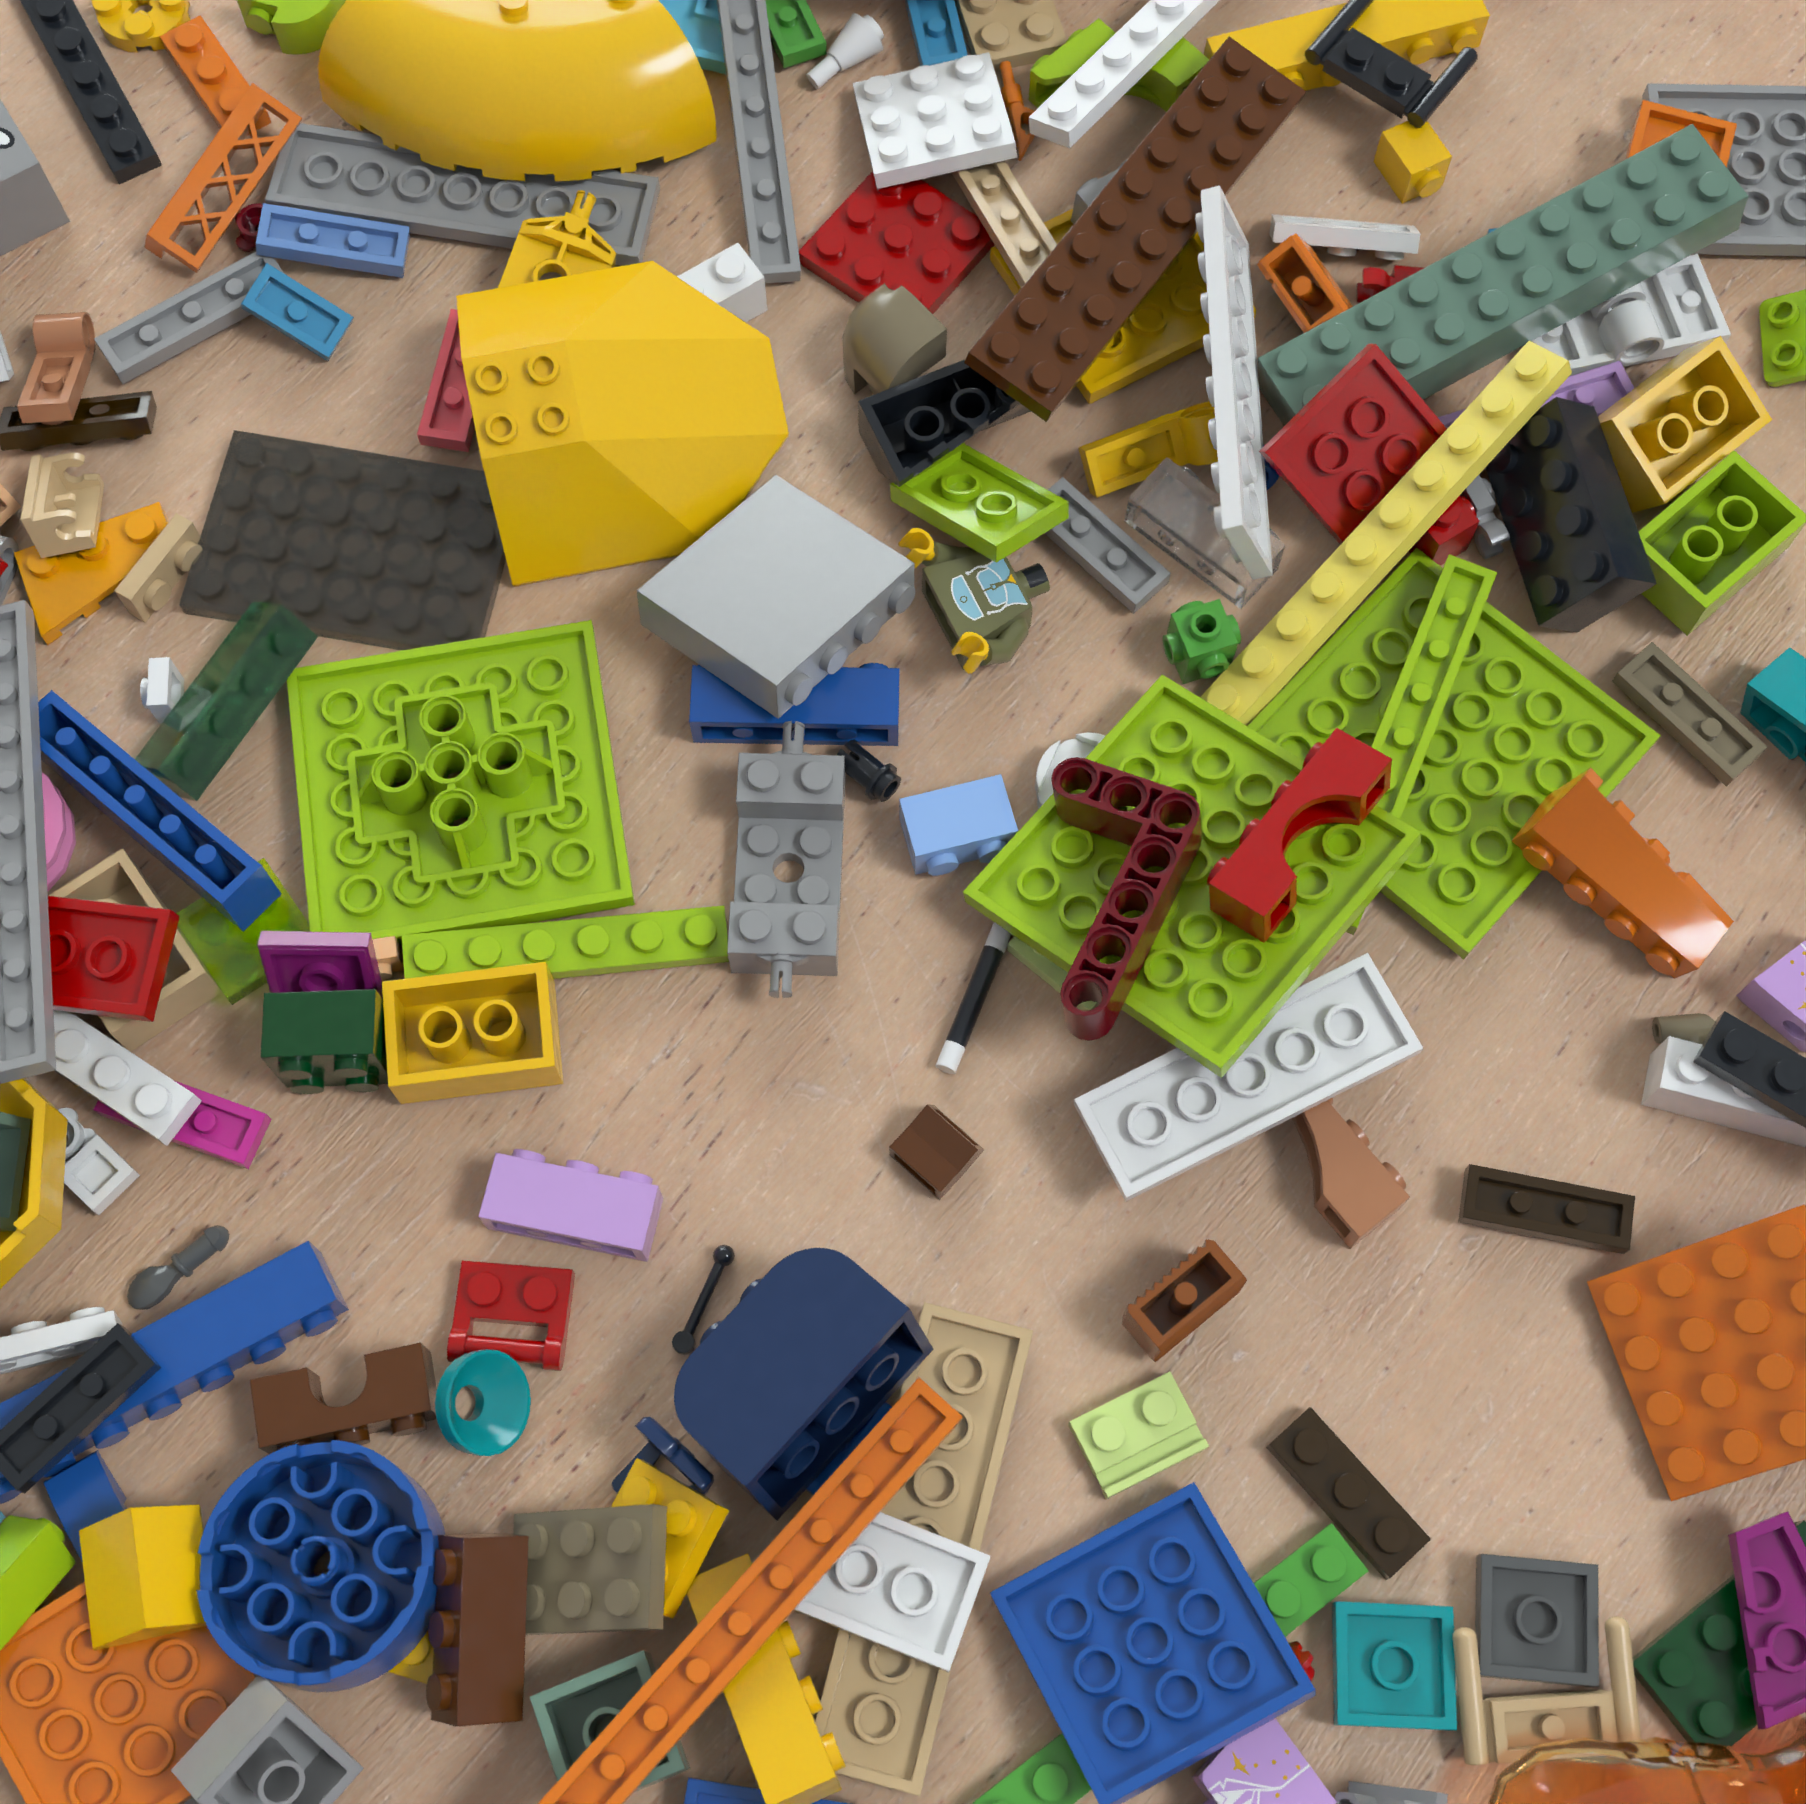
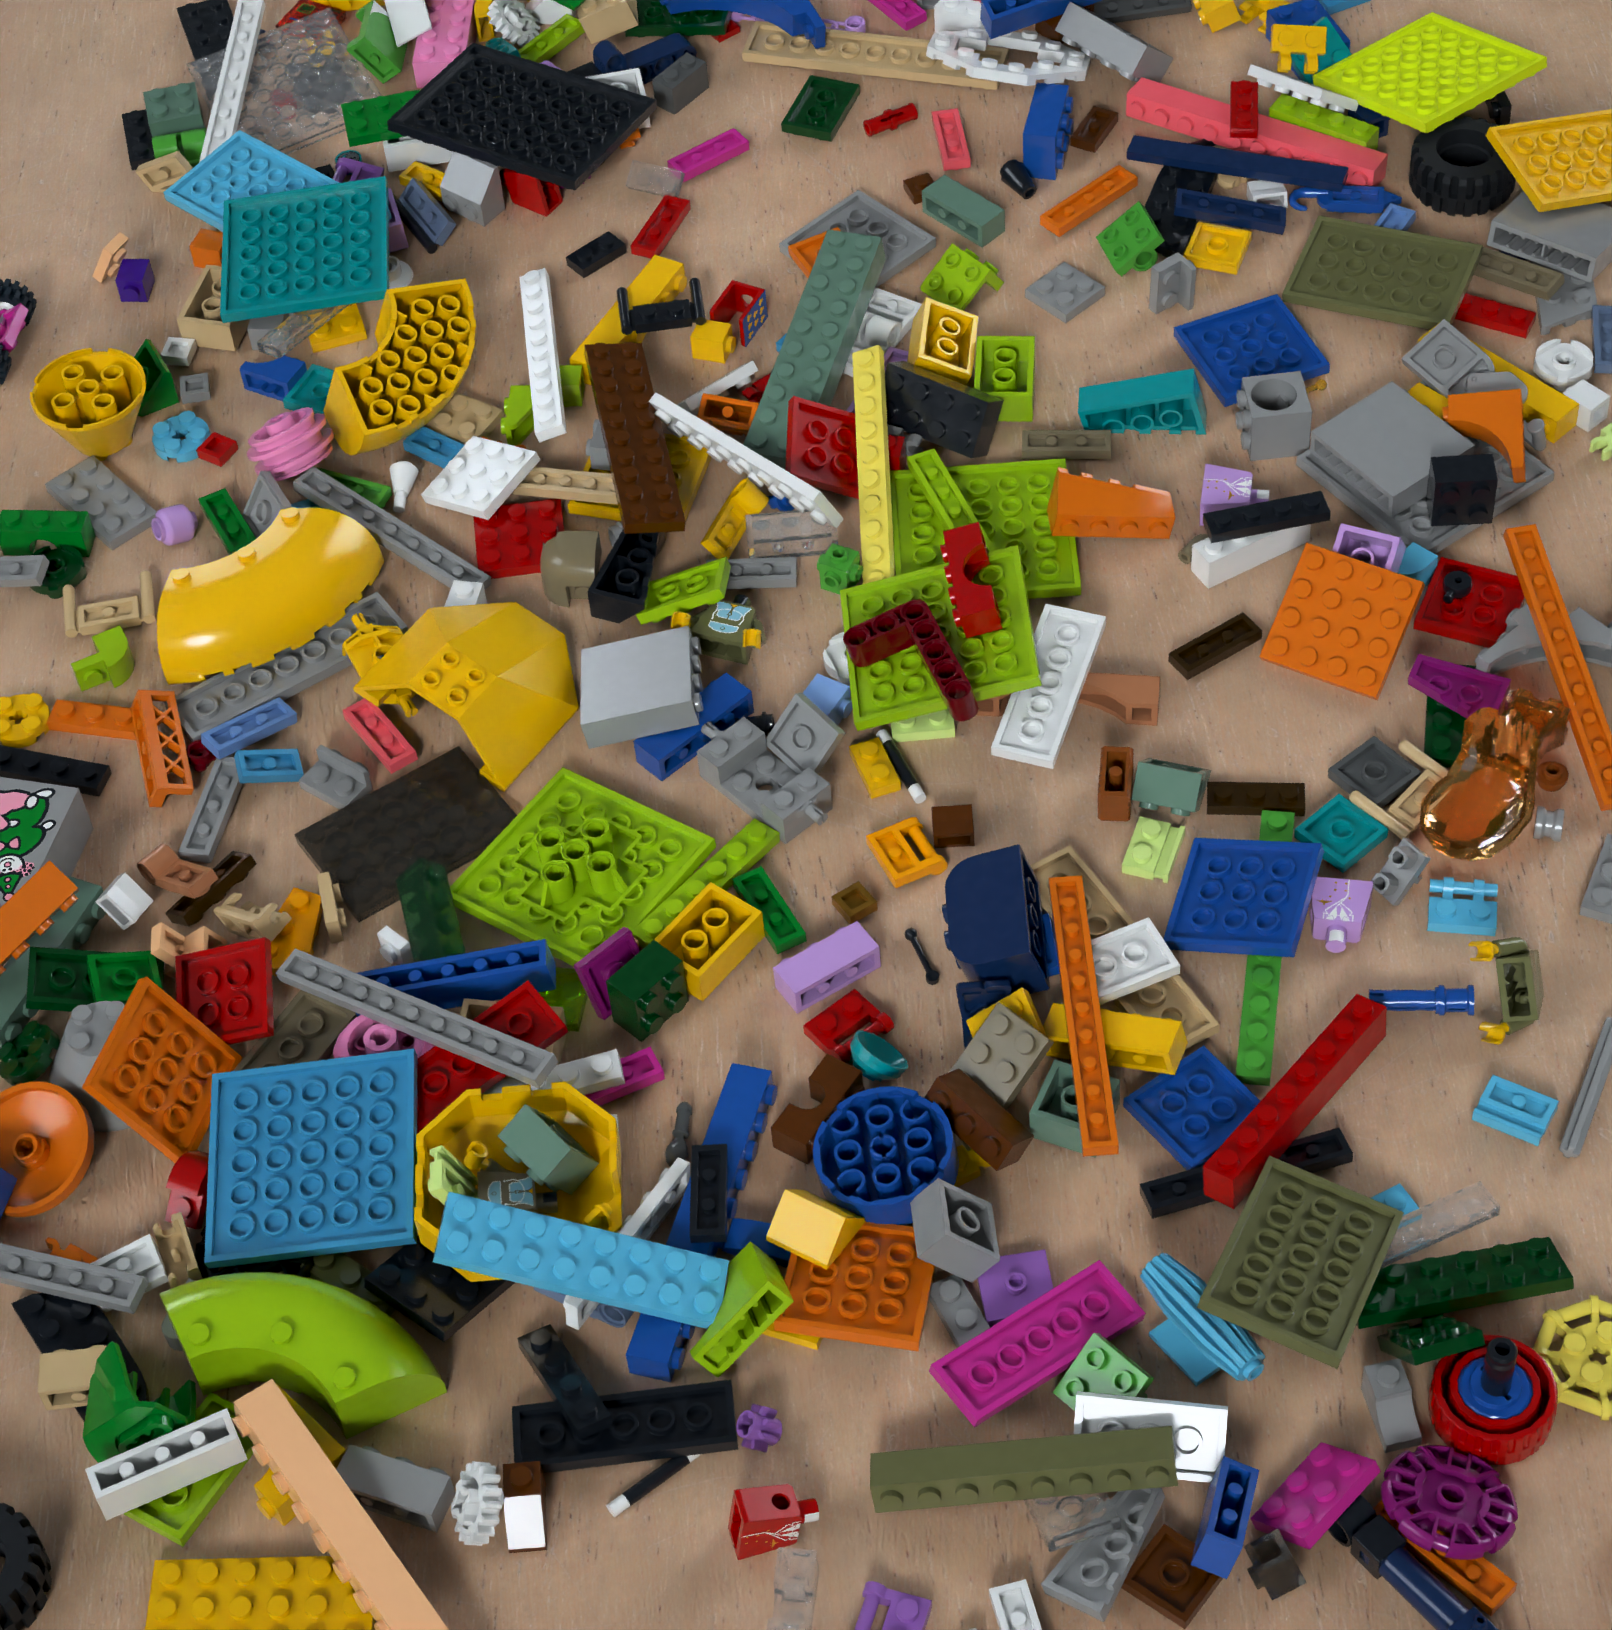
camera: 40 degrees left, 20 degrees down
(351, 399) = (336, 779): none -> light grey bracket
(600, 1055) = (779, 922): none -> green plate
(703, 1145) = (854, 902): none -> pearl gold plate
(824, 1126) = (897, 856): none -> light orange plate
(884, 854) = (804, 735): none -> light grey plate
(941, 969) = (875, 768): none -> yellow plate
(1258, 1365) = (1170, 786): none -> sand green slope
(1483, 124) = (732, 301): none -> red piece

